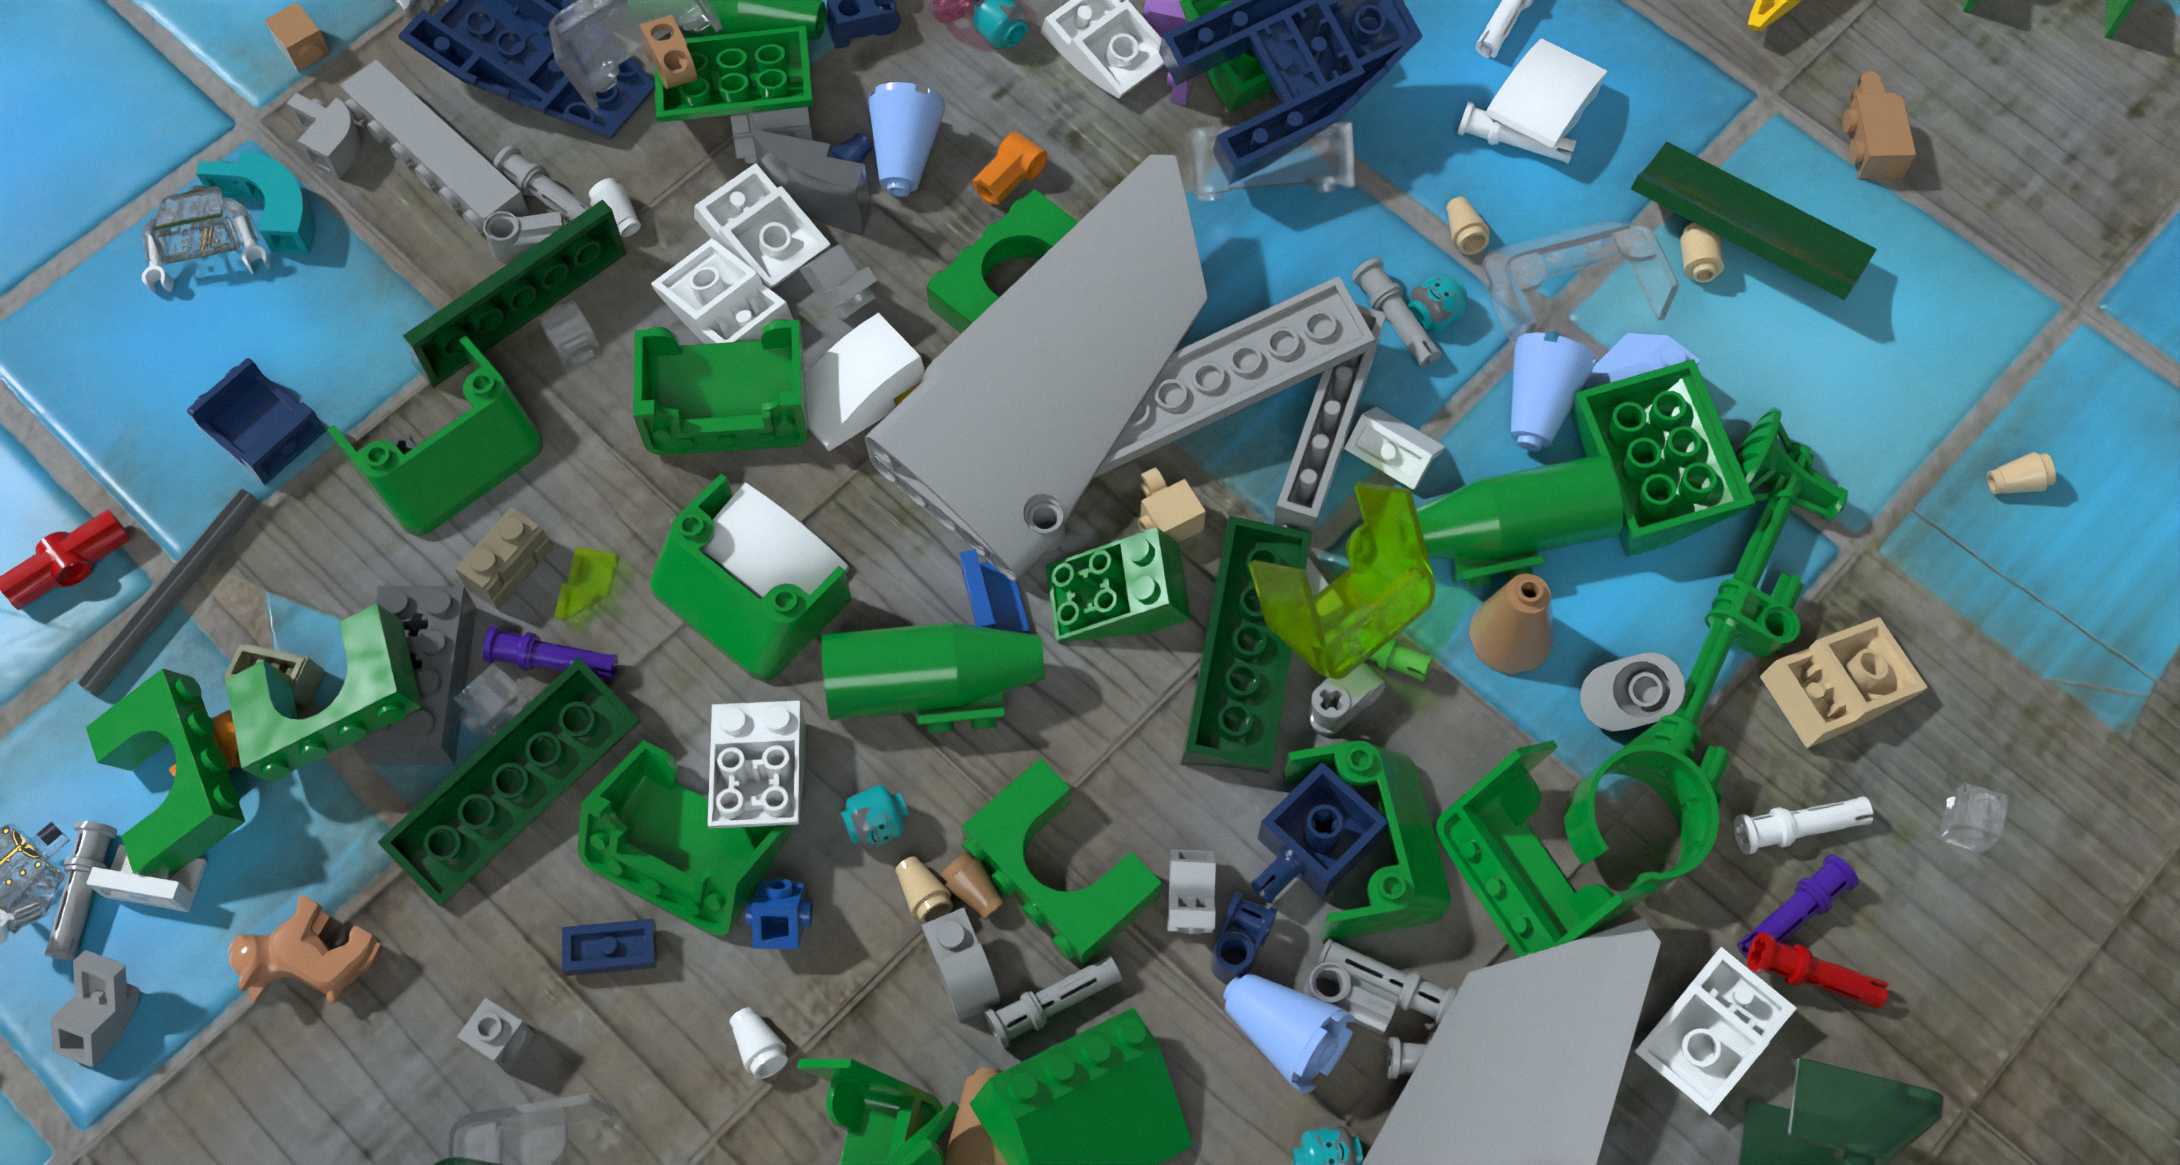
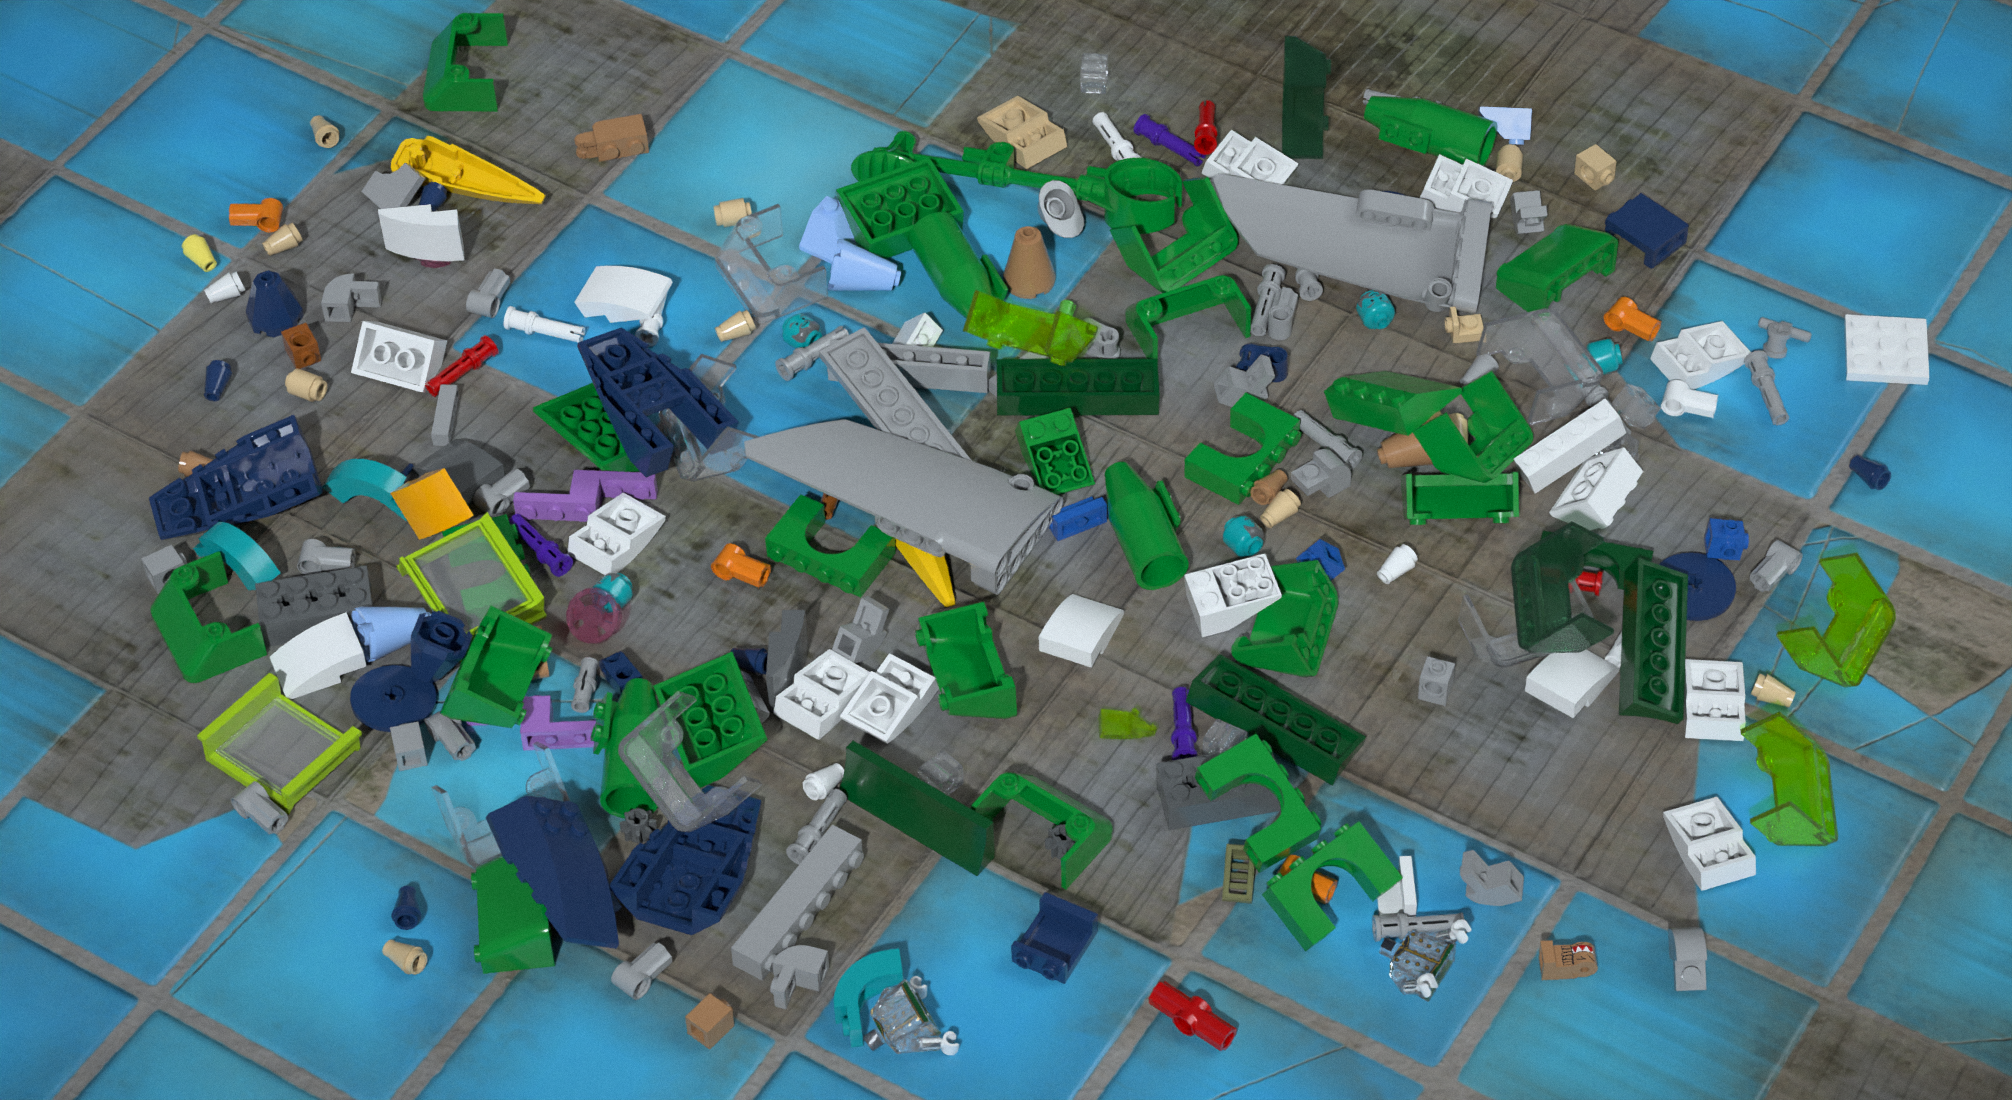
camera: 100 degrees left, 15 degrees down
(167, 593) = (1196, 951): dark grey axle -> none
(300, 954) = (1419, 790): nougat animal -> none
(504, 558) = (1122, 763): dark tan brick -> none
(520, 231) = (860, 824): light grey piece -> none
(609, 947) = (1363, 646): dark blue plate -> none
(668, 56) = (709, 739): medium nougat leg -> none
(750, 631) = (1113, 659): green windscreen -> none
(859, 380) = (932, 591): white slope -> none
(903, 133) = (731, 622): light blue cone -> none
(1170, 508) = (992, 436): tan brick -> none
(1289, 1028) = (1311, 328): light blue cone -> none
(1312, 856) = (1193, 333): dark blue brick -> none
(1754, 220) = (707, 187): dark green arch -> none
(2023, 475) = (861, 63): tan cone -> none

